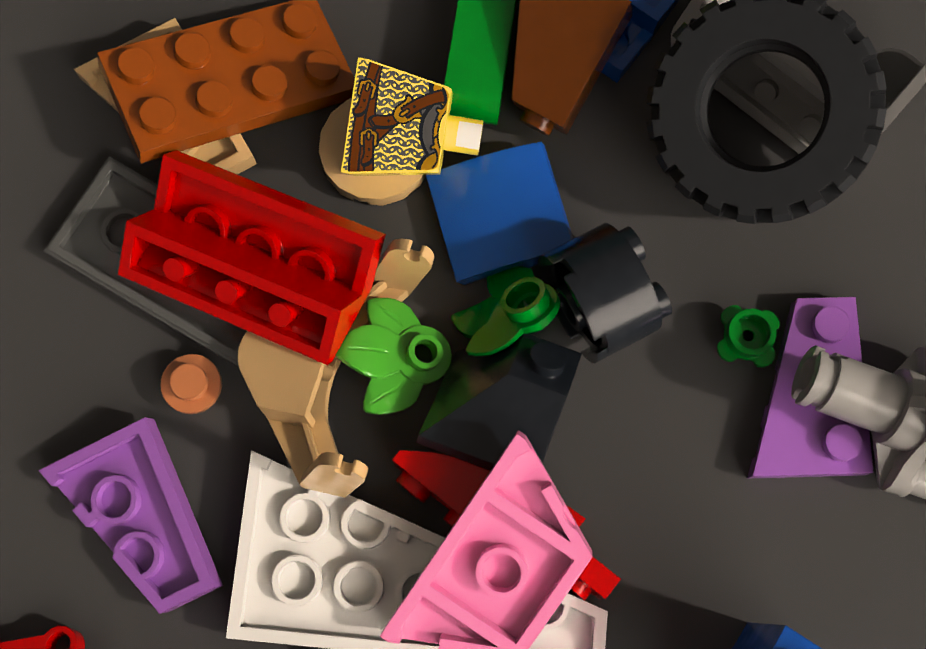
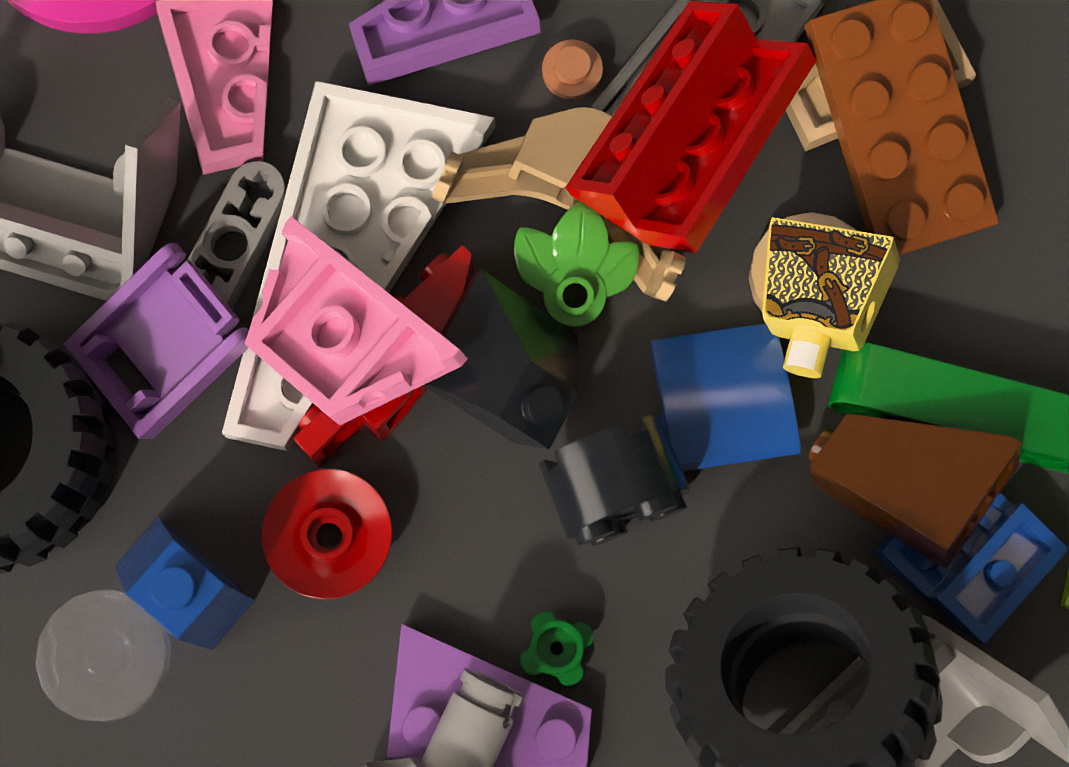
camera: 100 degrees right, 0 degrees up
(516, 307) = (605, 384): green plate -> none
(714, 550) = (303, 511): none -> red dish

